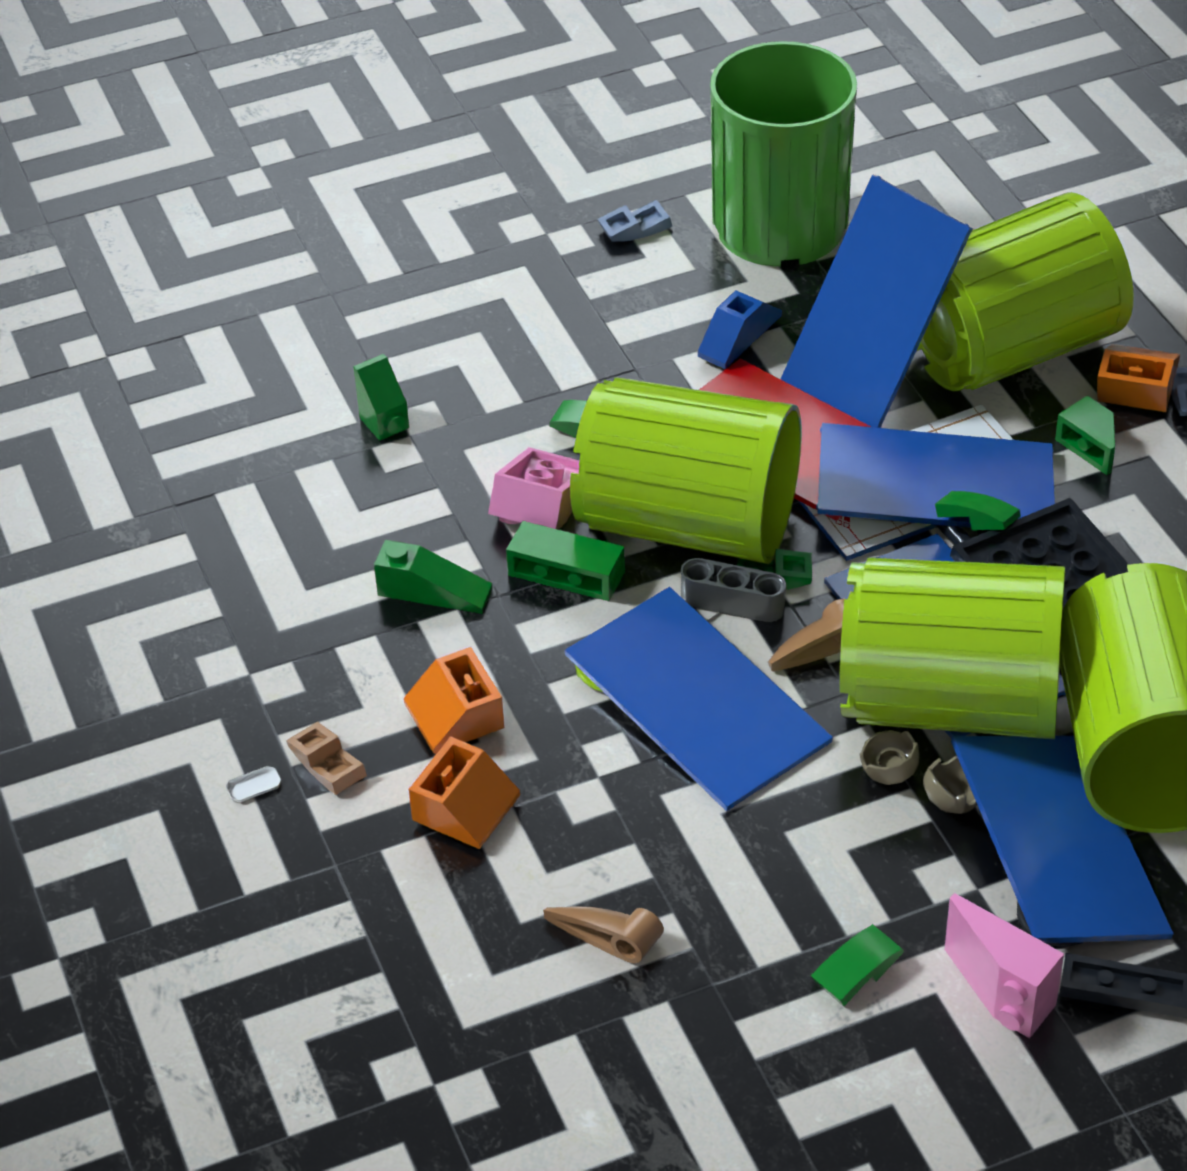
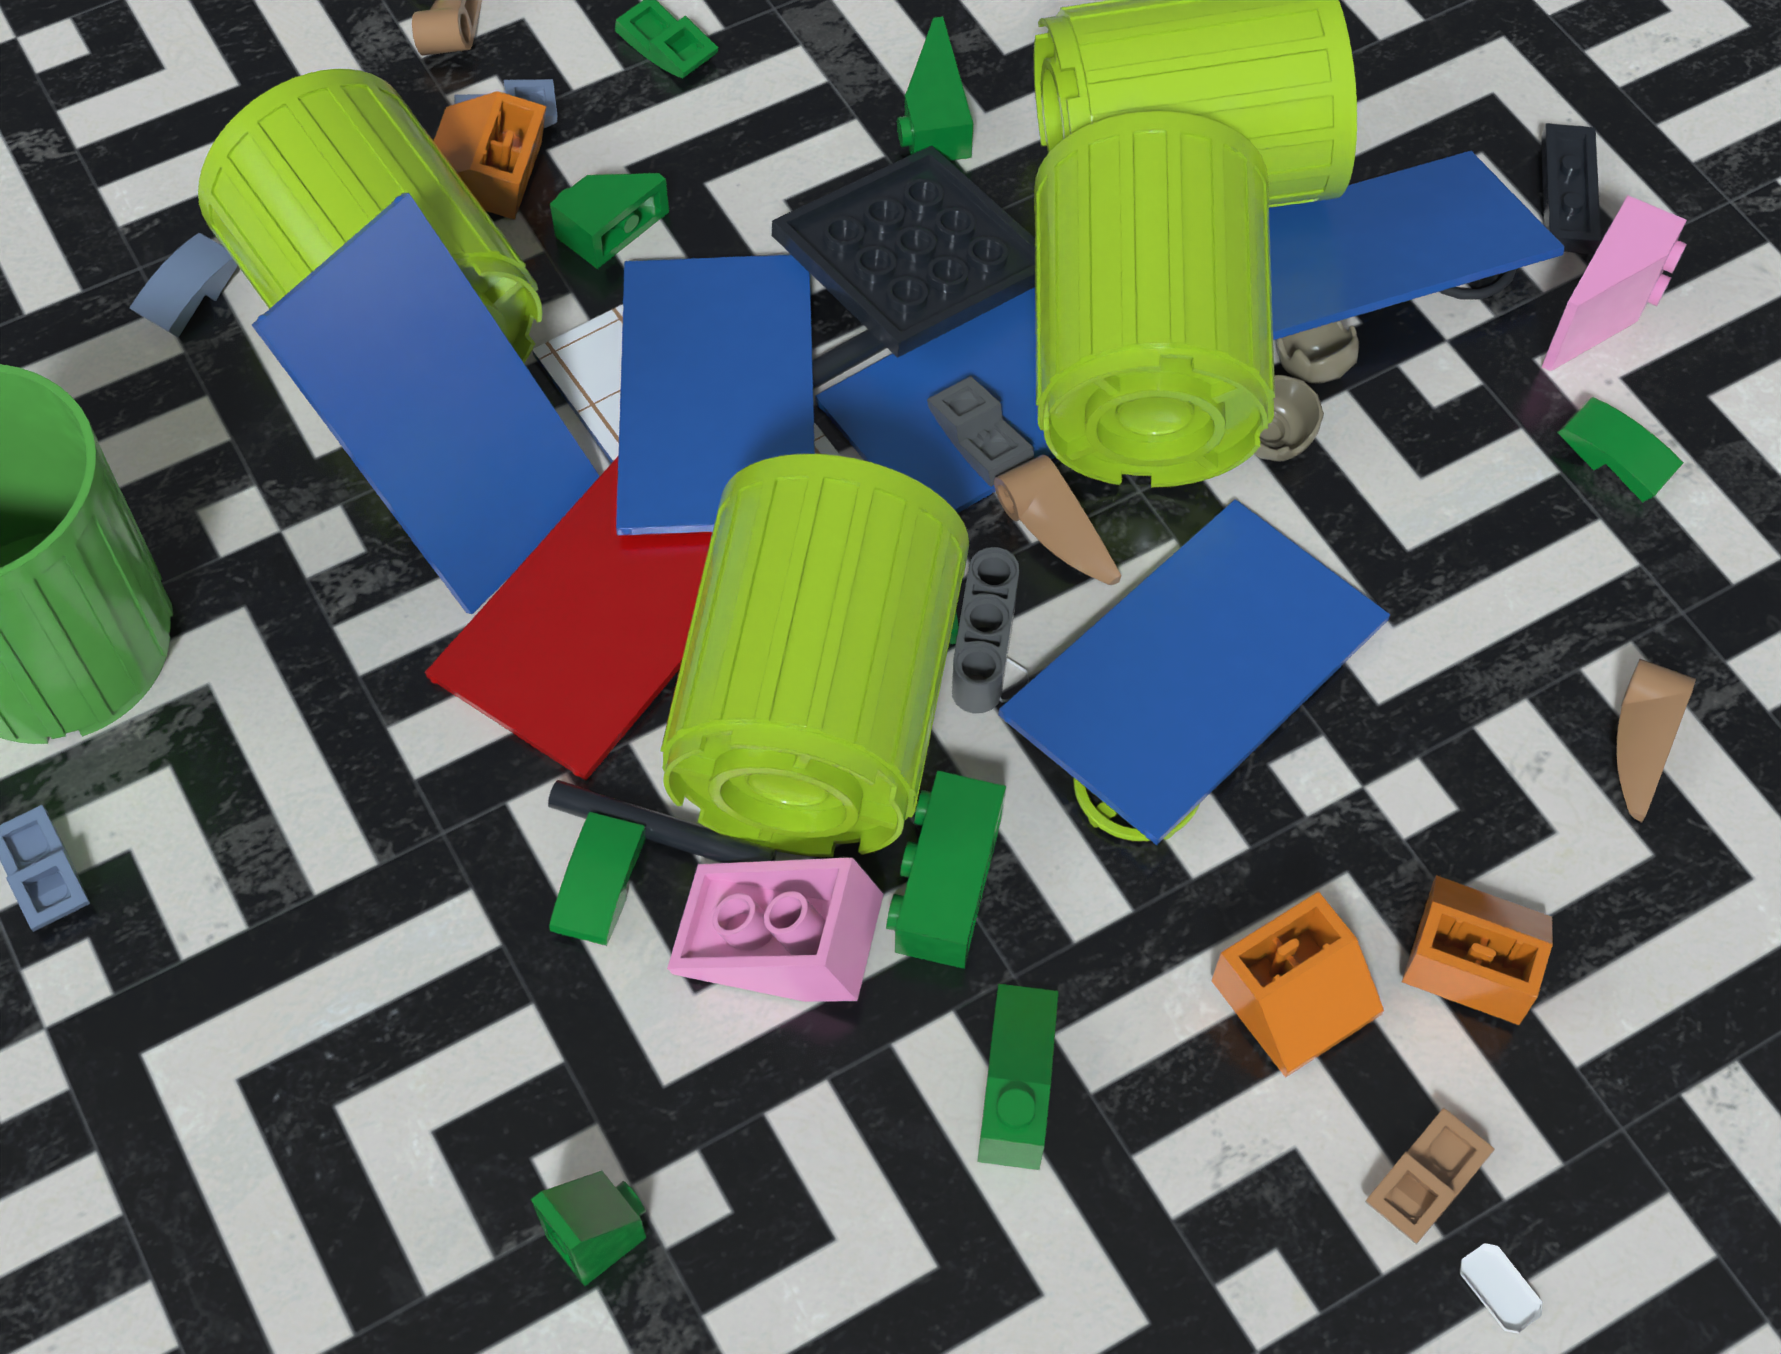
camera: 100 degrees left, 15 degrees up
(735, 327) = (368, 667): blue slope -> none
(983, 510) = (810, 322): green slope -> none

